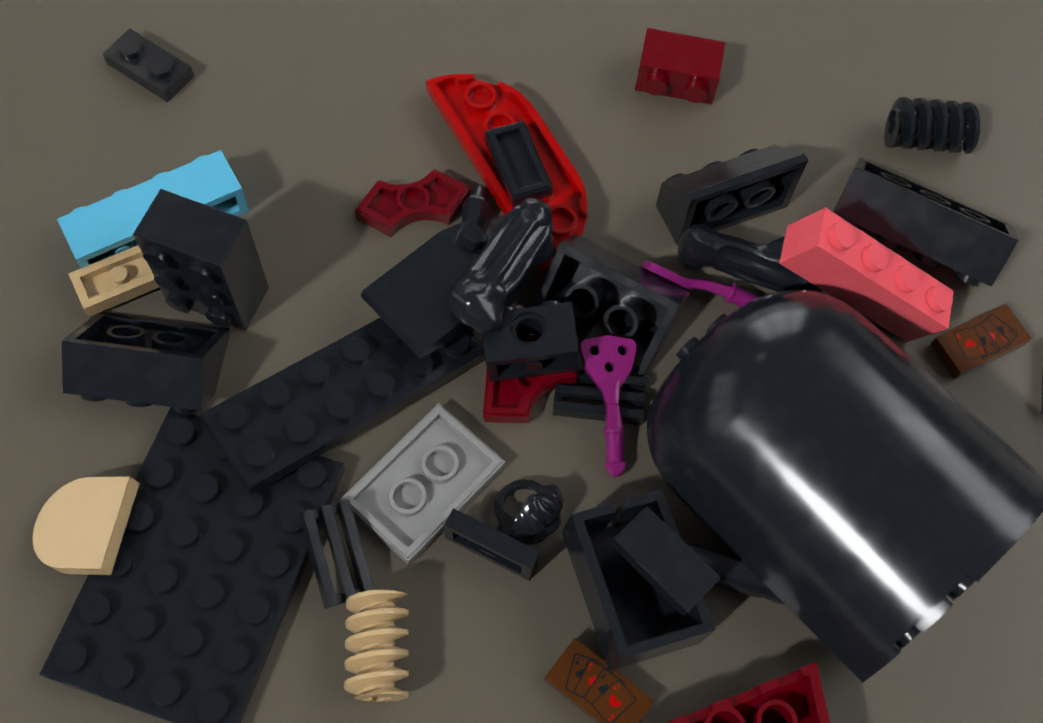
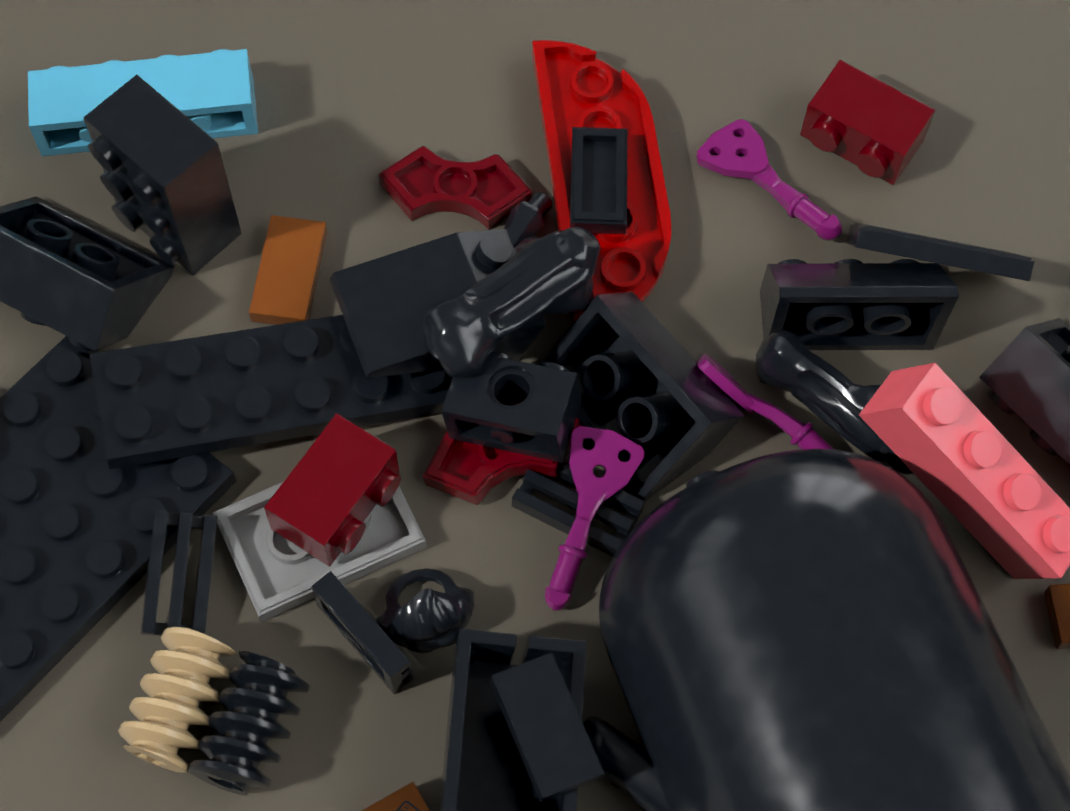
camera: 25 degrees right, 0 degrees up
(113, 281) = (57, 166): tan plate -> none
(317, 302) = (288, 270): none -> dark orange tile
(428, 449) = (334, 490): none -> dark red brick
(438, 643) = (248, 724): none -> black piece
(617, 120) = (757, 168): none -> magenta piece
(771, 136) = (940, 251): none -> black tile

